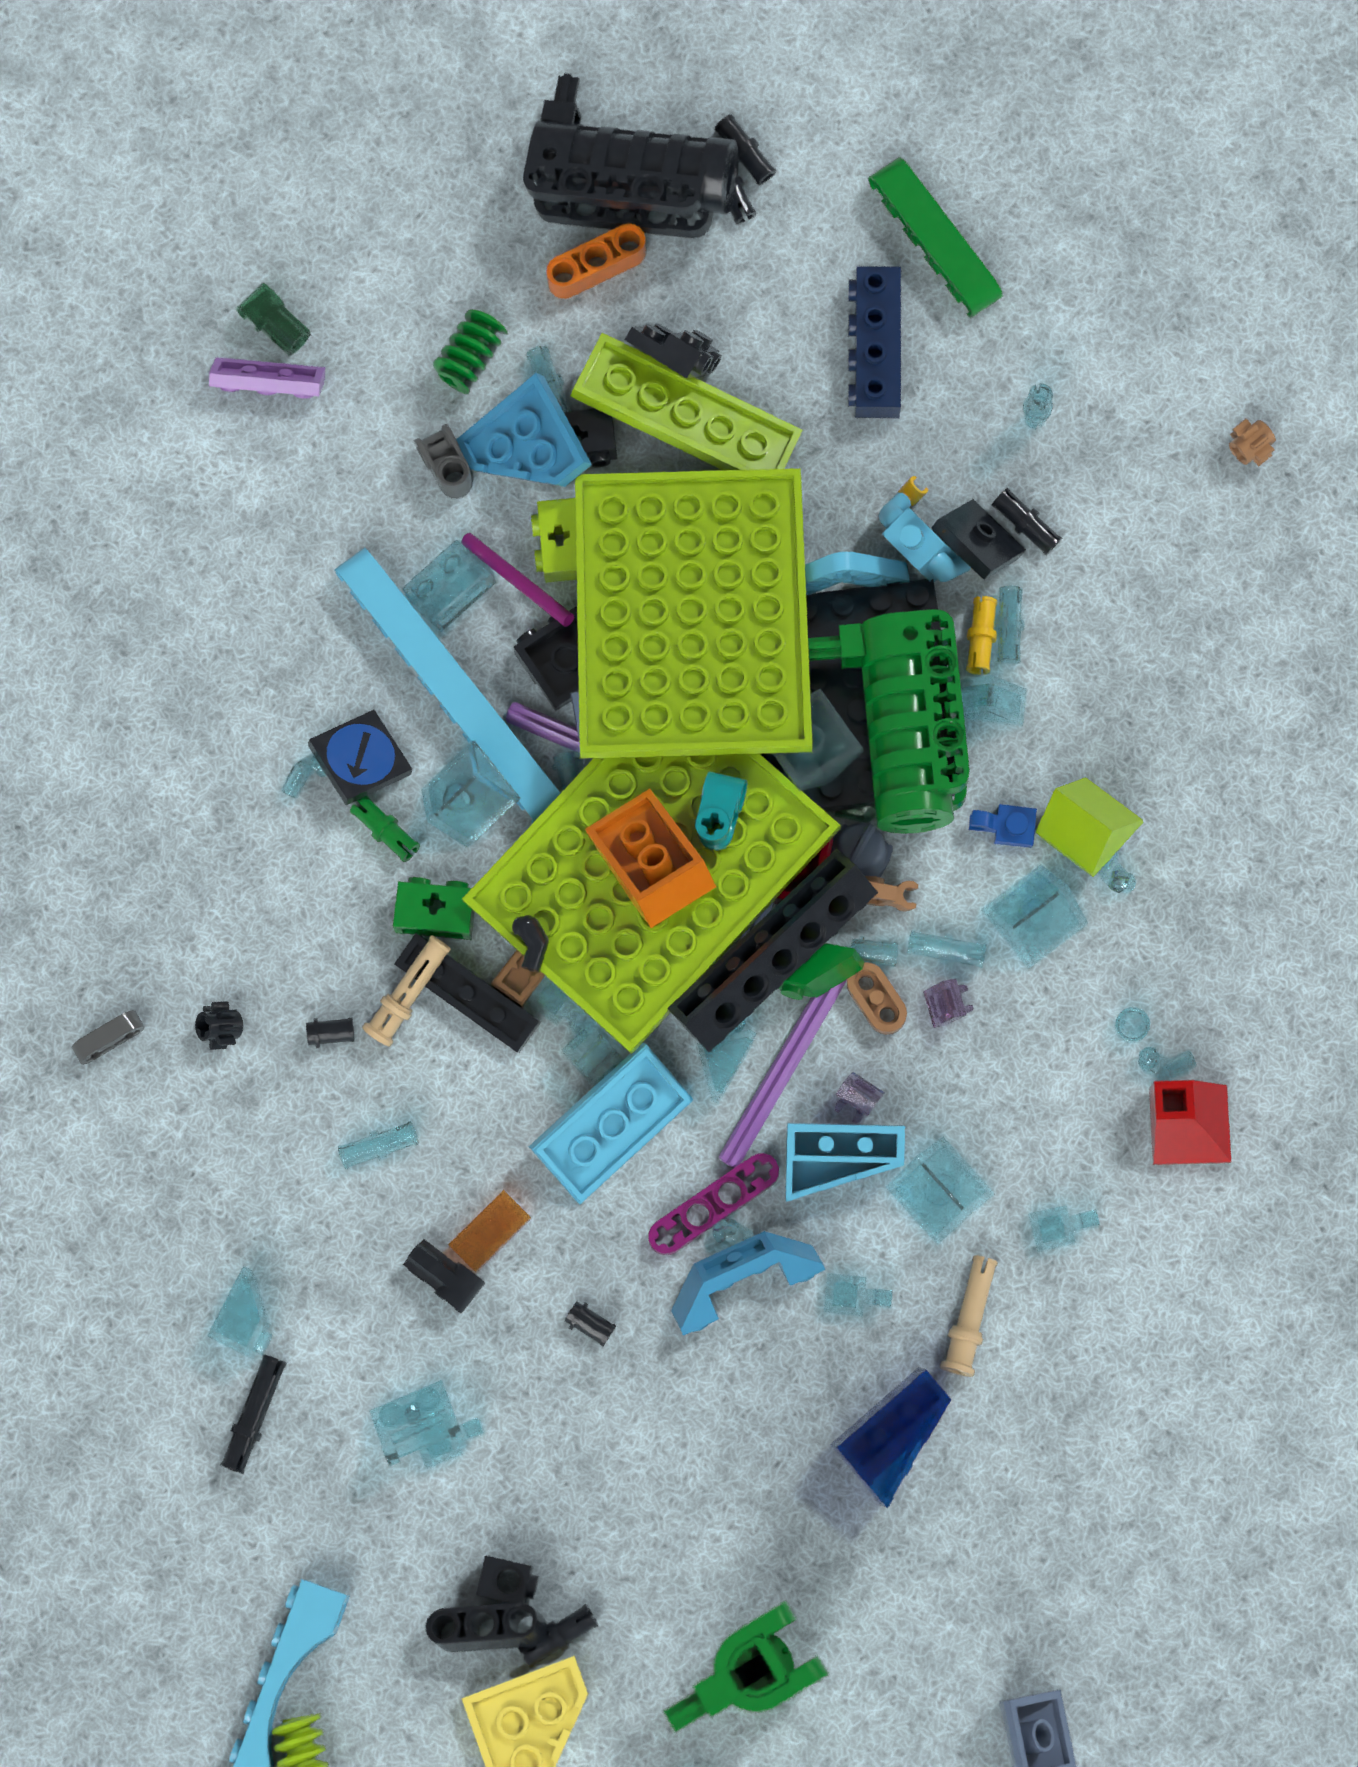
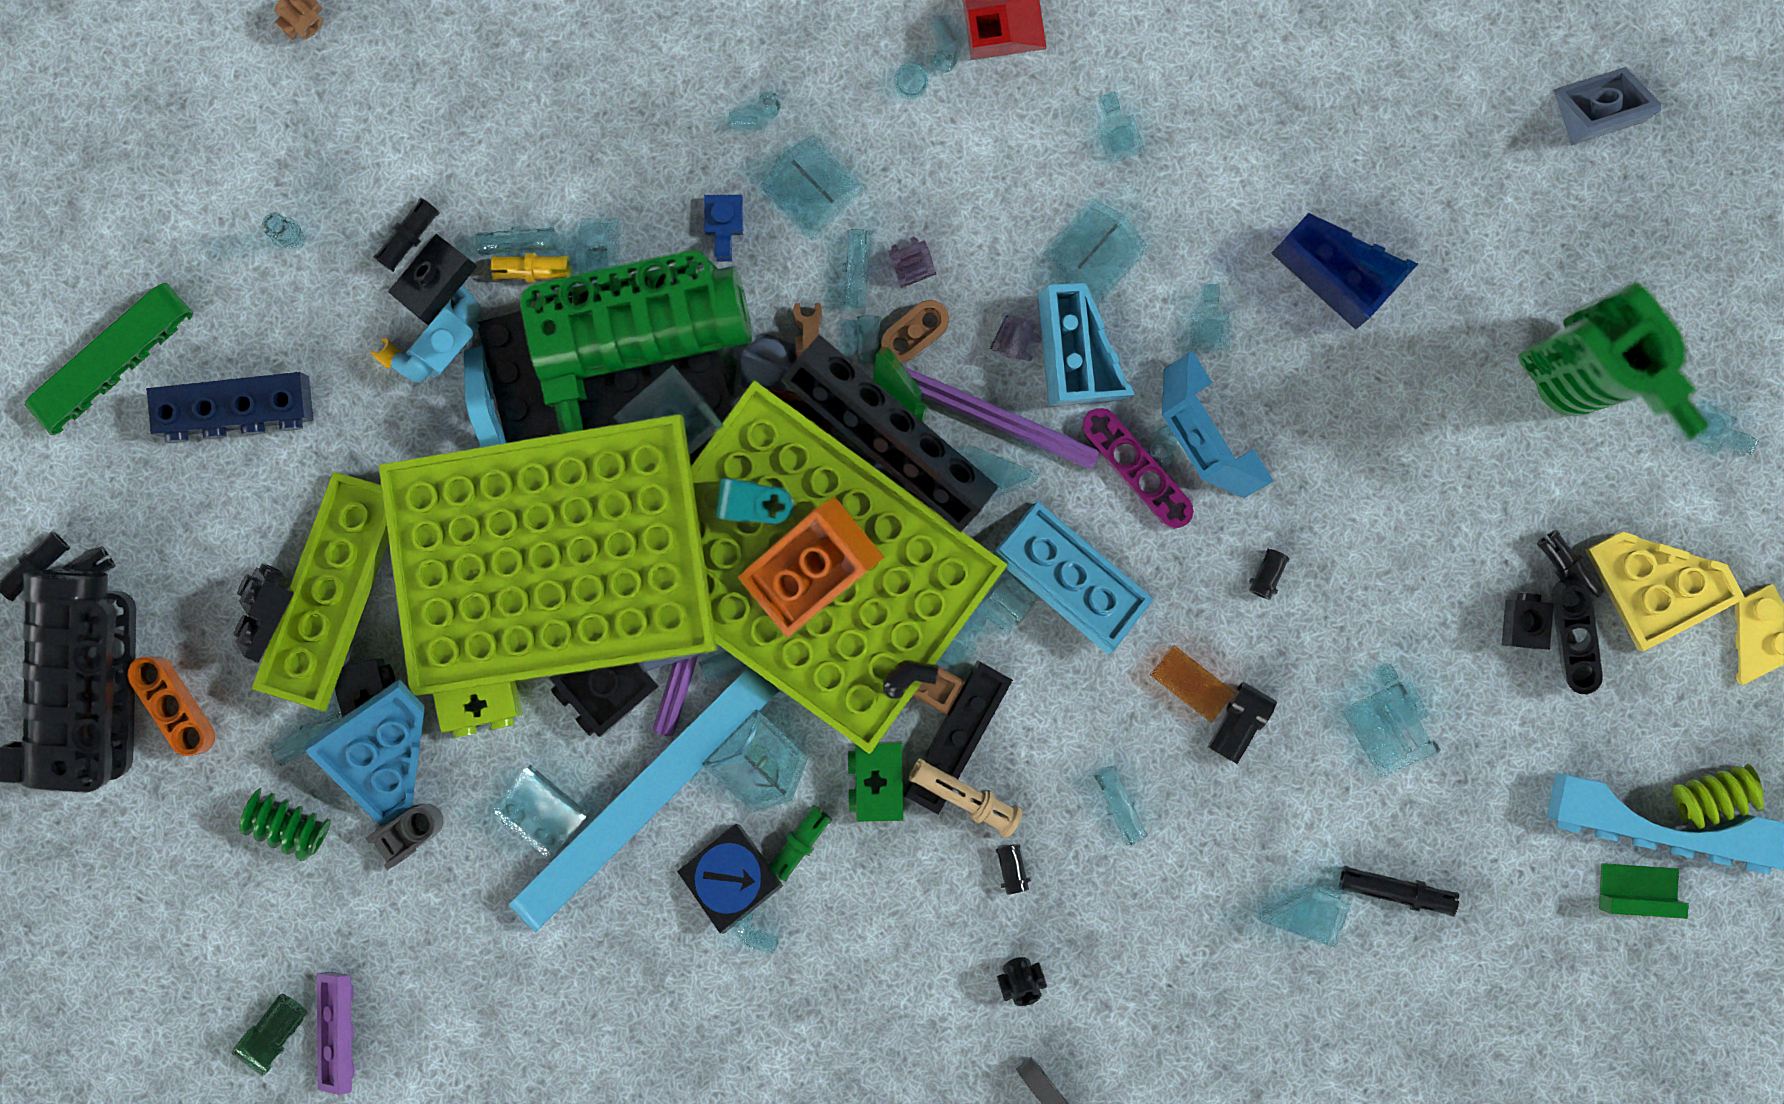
camera: 100 degrees left, 10 degrees up
(217, 1665) = (1641, 891): none -> green panel
(517, 579) = (526, 742): magenta bar -> none
(966, 1335) = (1234, 210): tan pin -> none
(1086, 824) = (716, 142): lime slope -> none

